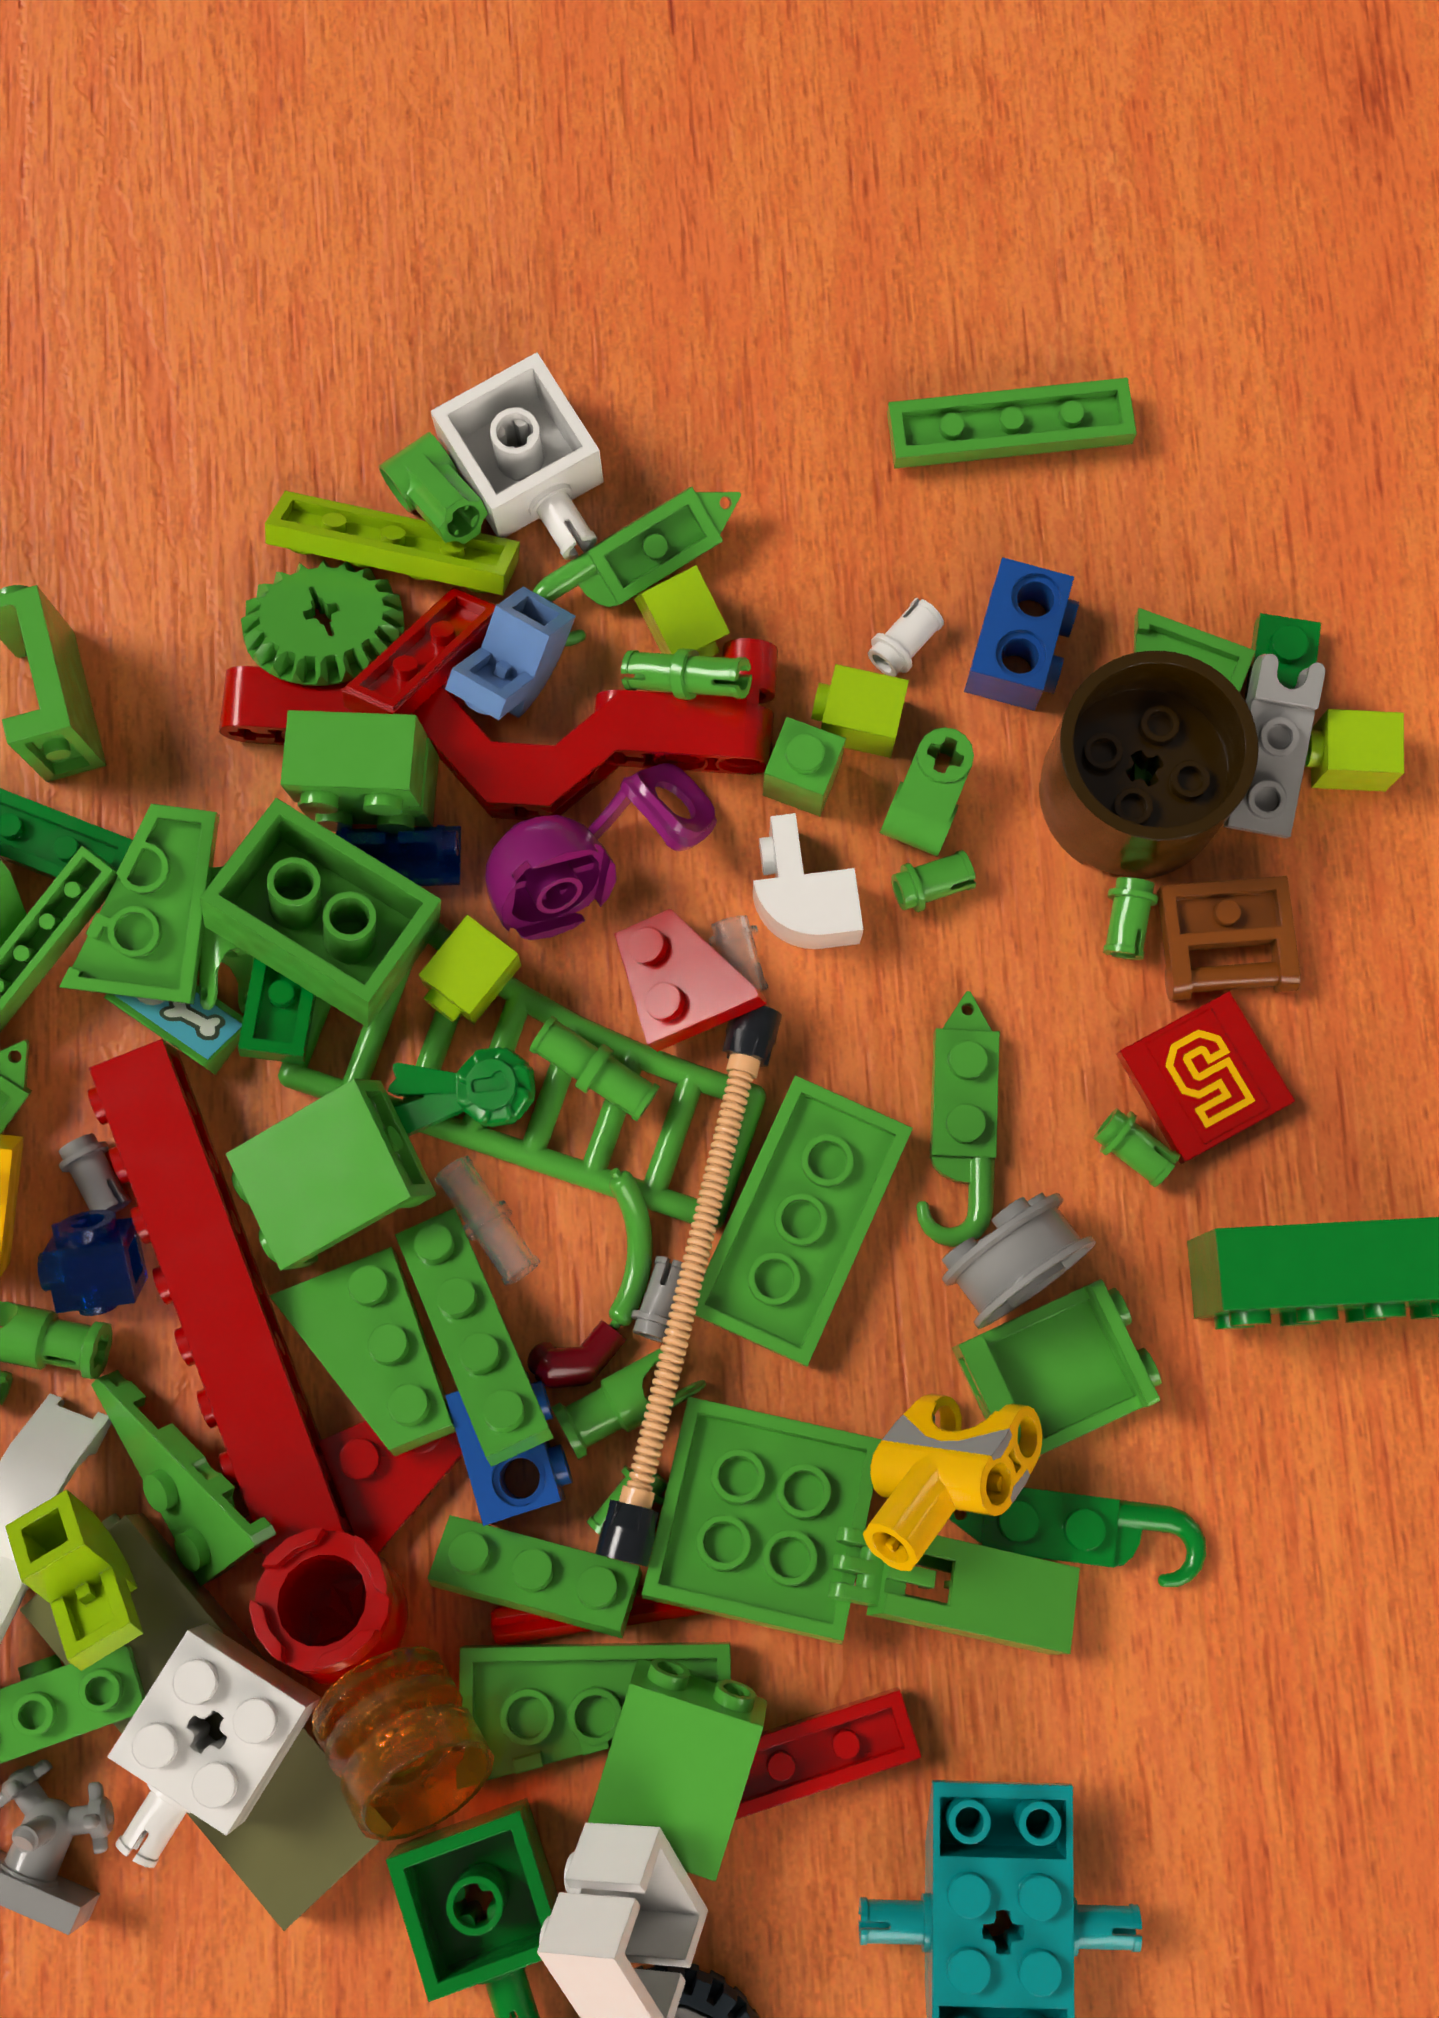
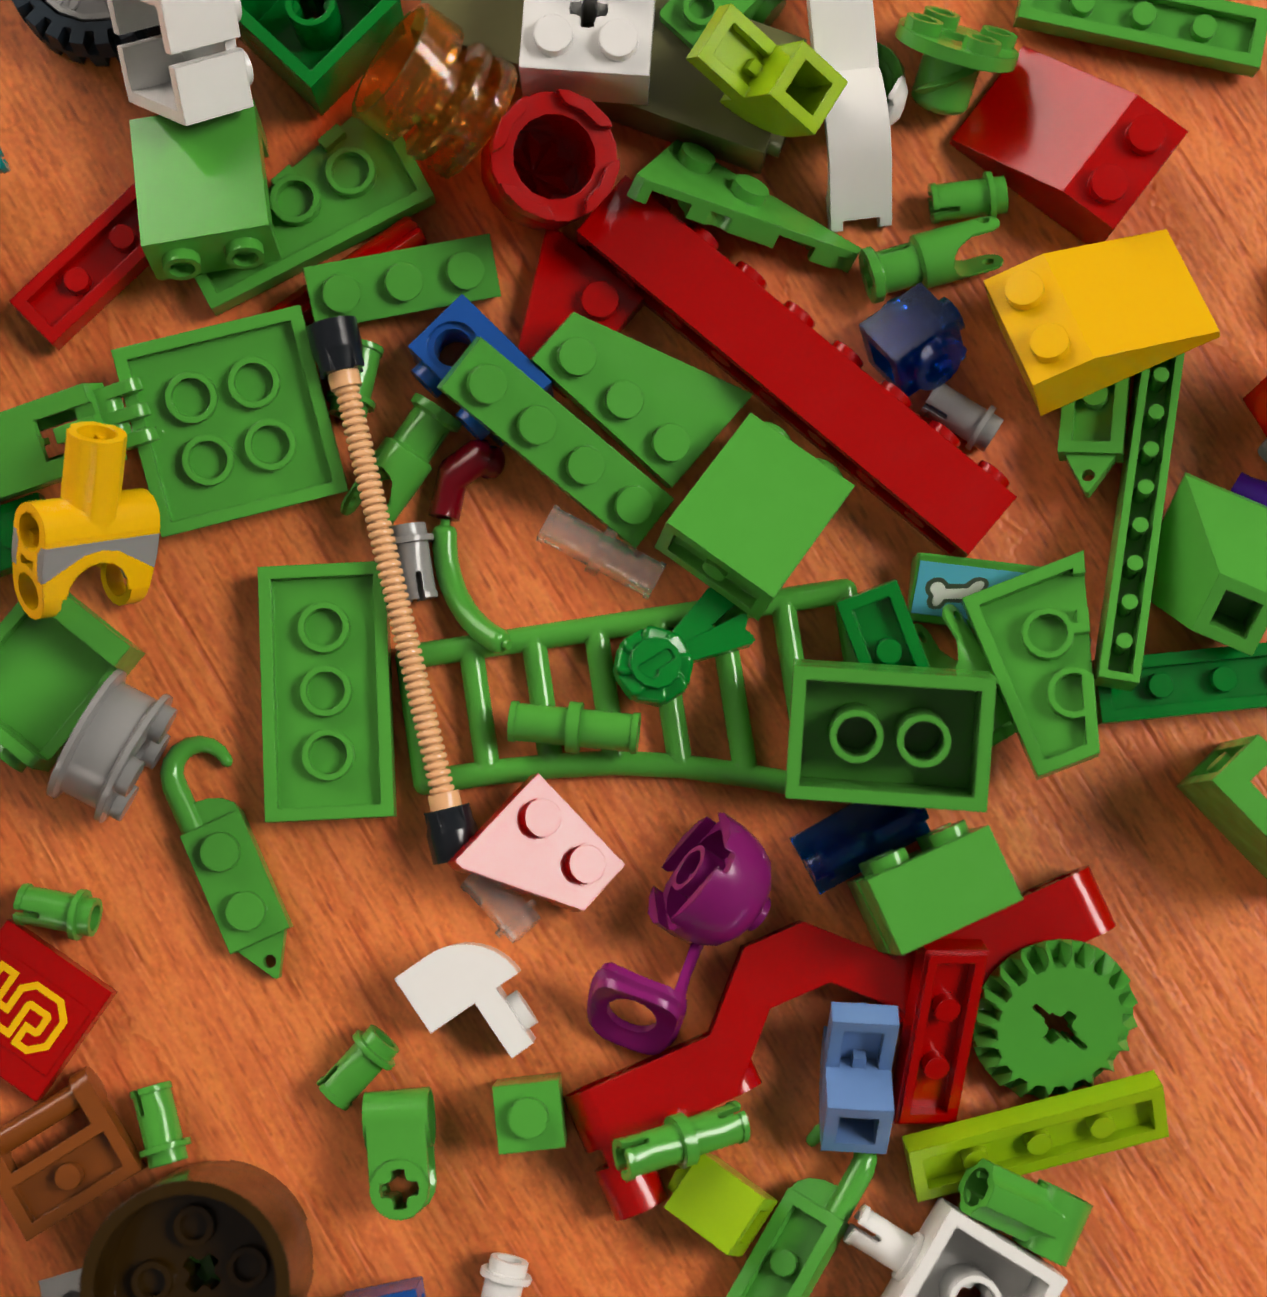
camera: 150 degrees right, 5 degrees up
(468, 971) = (732, 753): lime brick -> none
(861, 708) = (505, 1199): lime brick -> none

